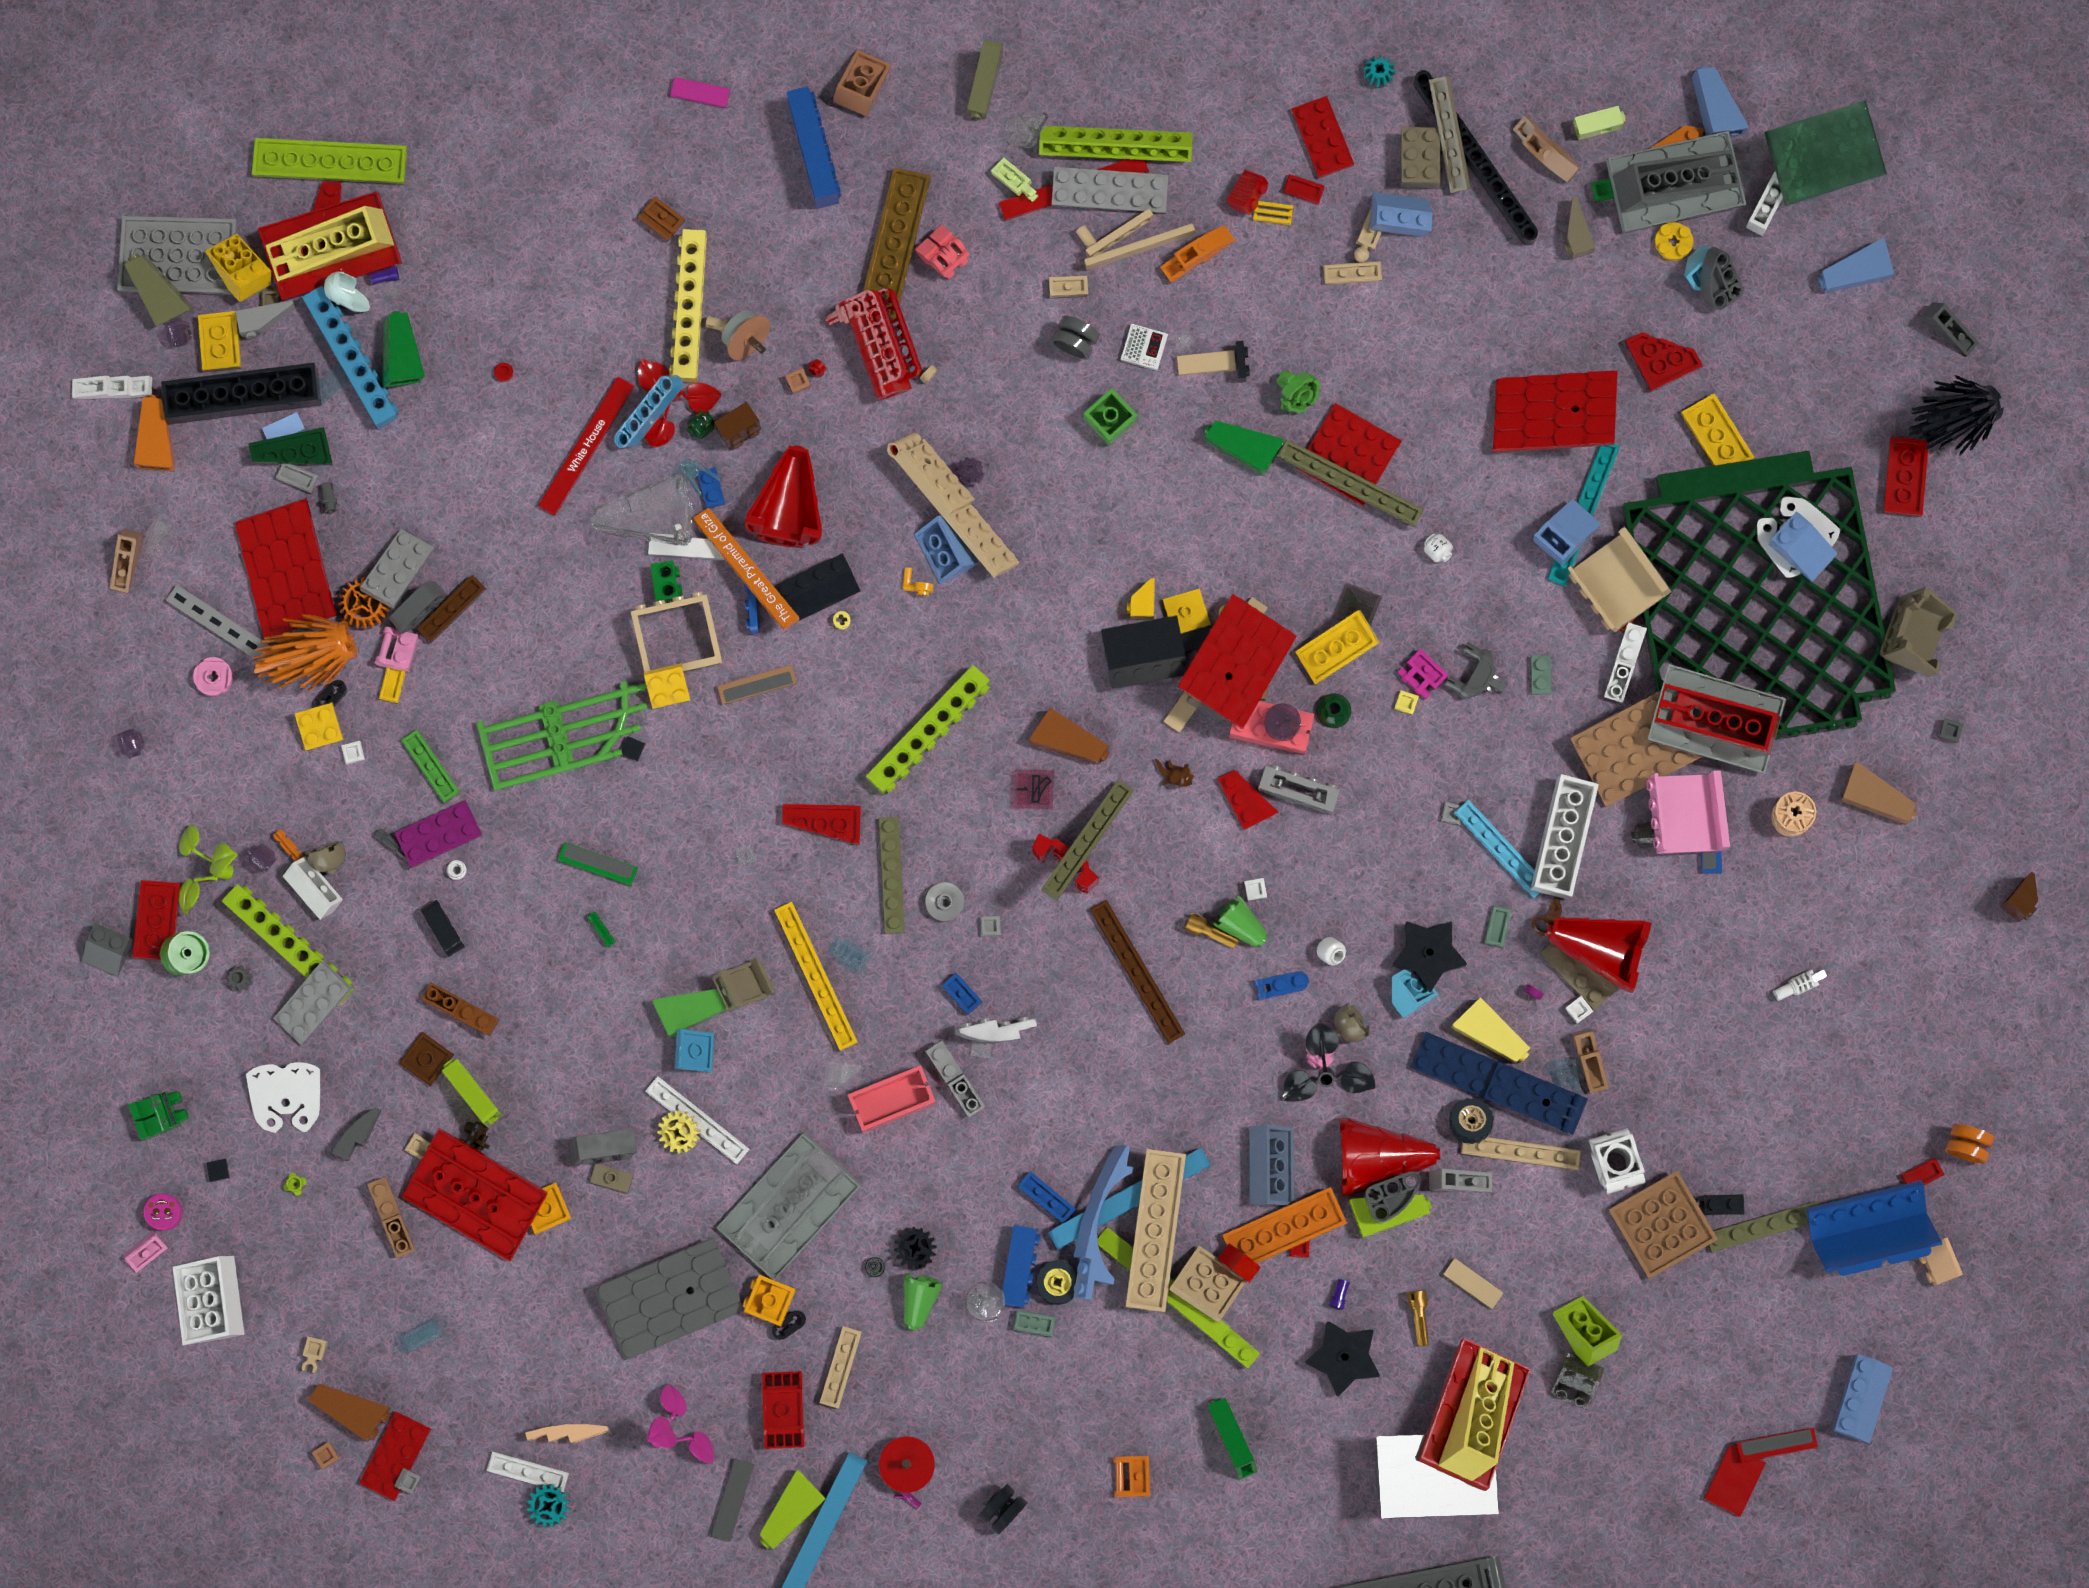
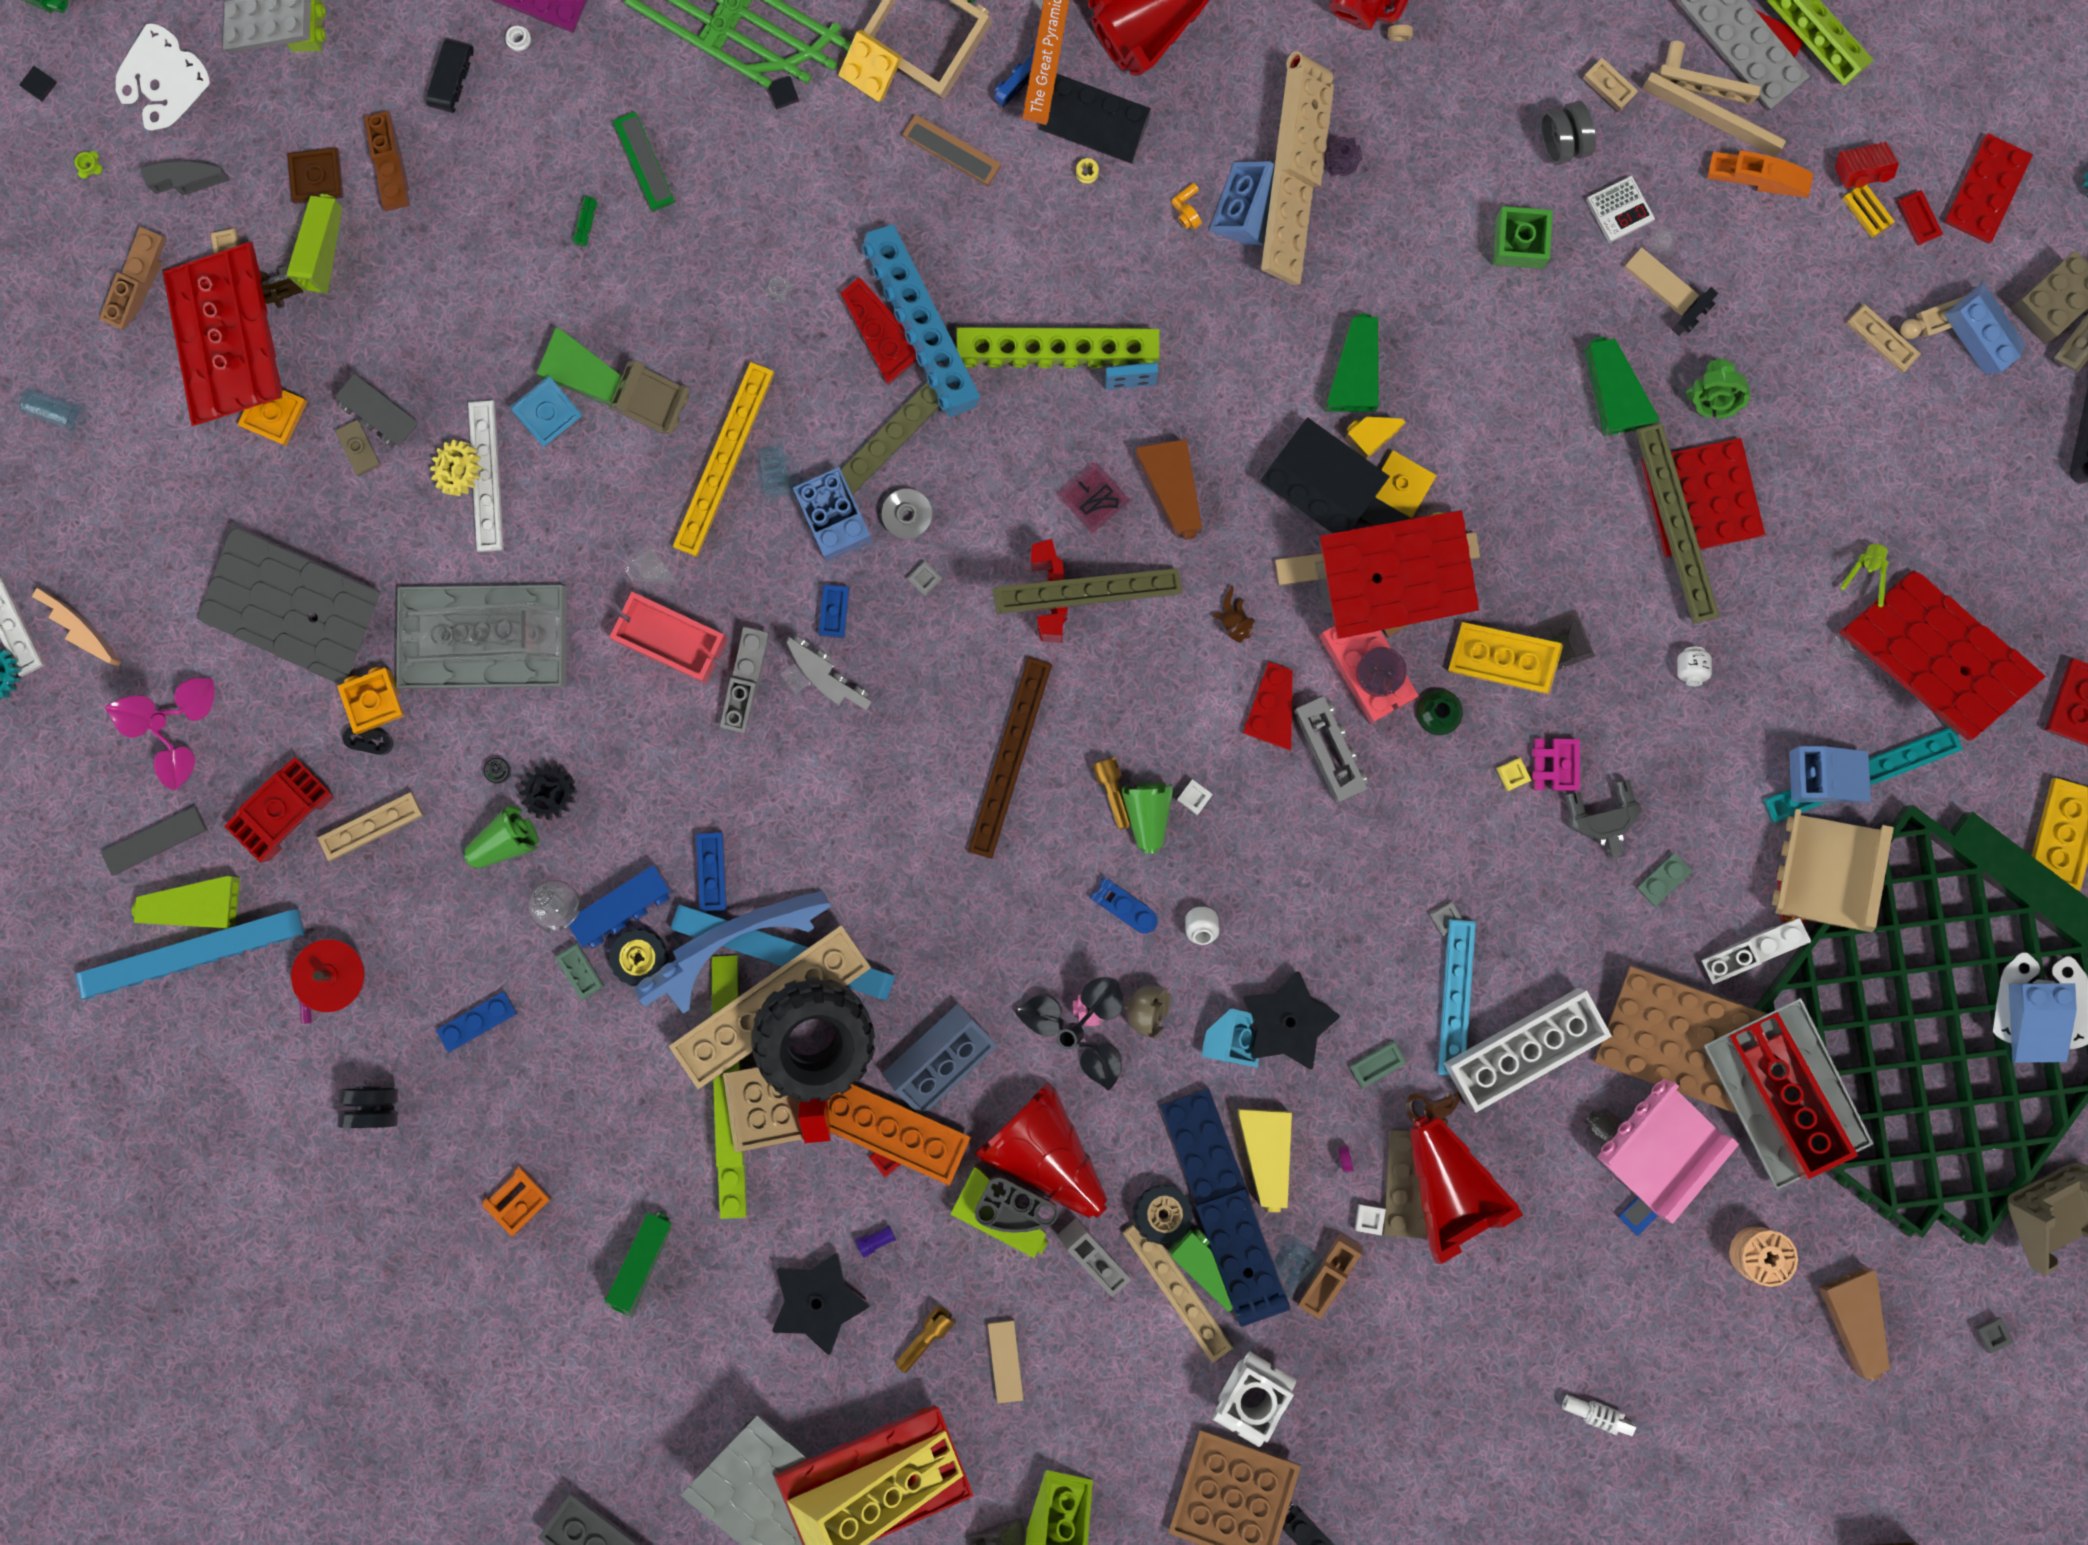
camera: 45 degrees right, 5 degrees up
(835, 784) = (888, 242): none -> dark azure brick
(906, 943) = (832, 514): none -> medium blue slope
(985, 704) = (1131, 376): none -> dark azure tile
(1008, 1408) = (476, 1022): none -> blue plate
(1100, 578) = (1357, 375): none -> green slope
(1222, 1219) = (821, 1073): none -> black tyre
(1470, 395) = (1873, 560): none -> lime plant
(1517, 1123) = (1198, 1261): none -> bright green slope

